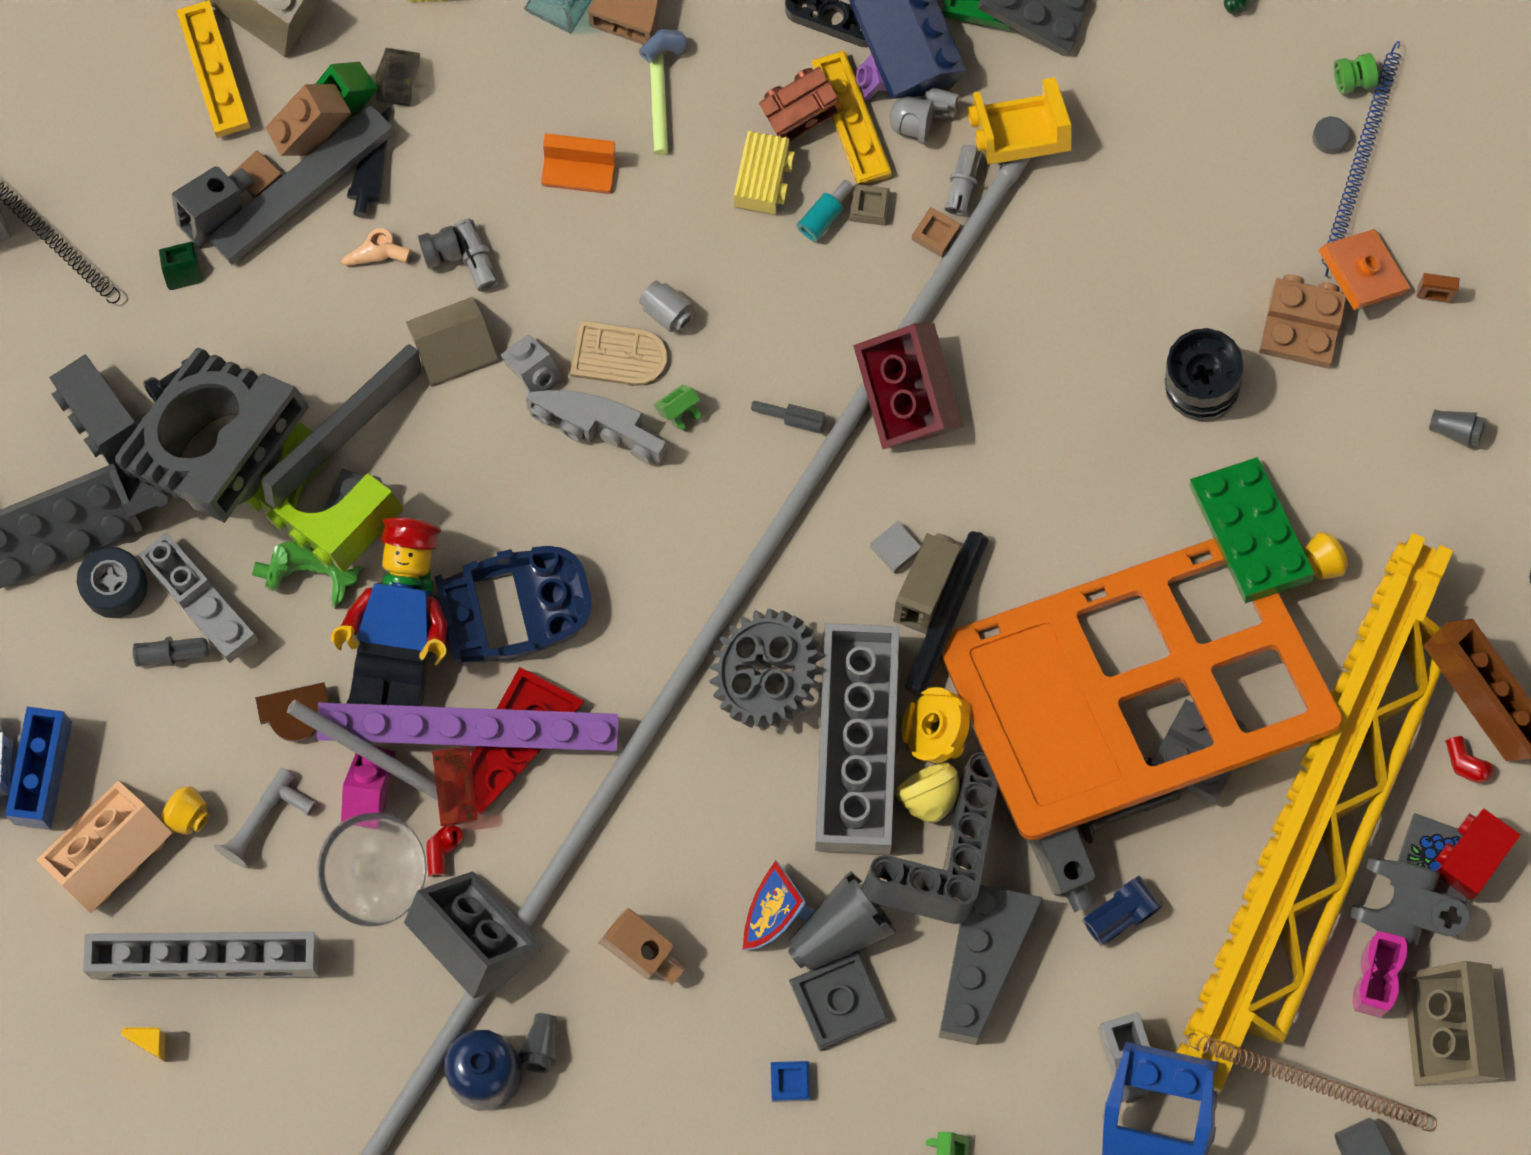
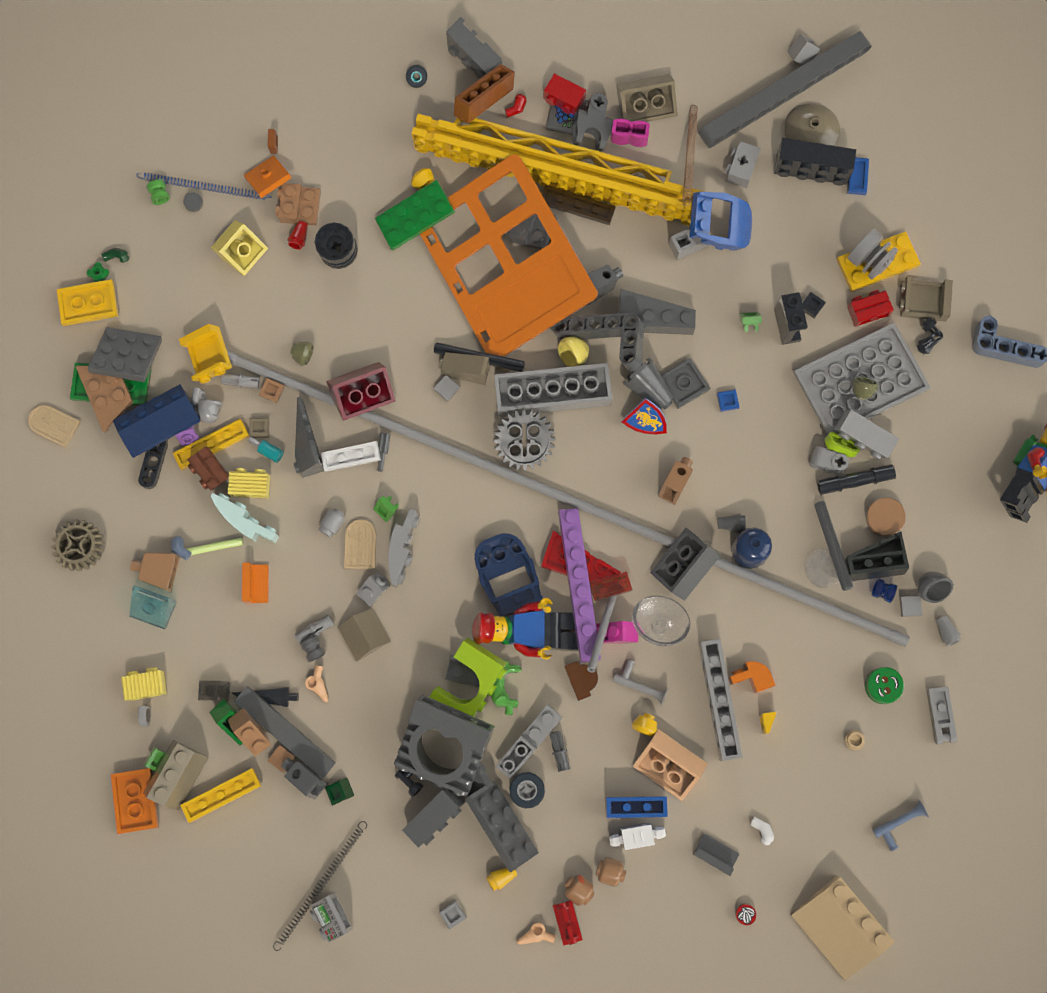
camera: 95 degrees left, 5 degrees up
(238, 1039) = (757, 673): none -> orange brick
(341, 426) = (425, 679): dark grey tile -> none
(439, 847) = (641, 592): red arm -> none
(704, 145) = (237, 517): none -> light aqua slope
(786, 354) = (350, 456): none -> white plate
(815, 279) = (306, 451): none -> dark grey wedge
(952, 730) = (533, 344): yellow plate -> none
(1001, 292) = (302, 352): none -> olive cone
(1129, 906) = (615, 251): dark blue piece -> none
(1225, 204) = (239, 247): none -> light yellow slope
(1237, 313) = (298, 236): none -> red cone
(1238, 849) = (578, 205): none -> dark brown plate
(1459, 426) = (345, 125): dark grey cone -> none

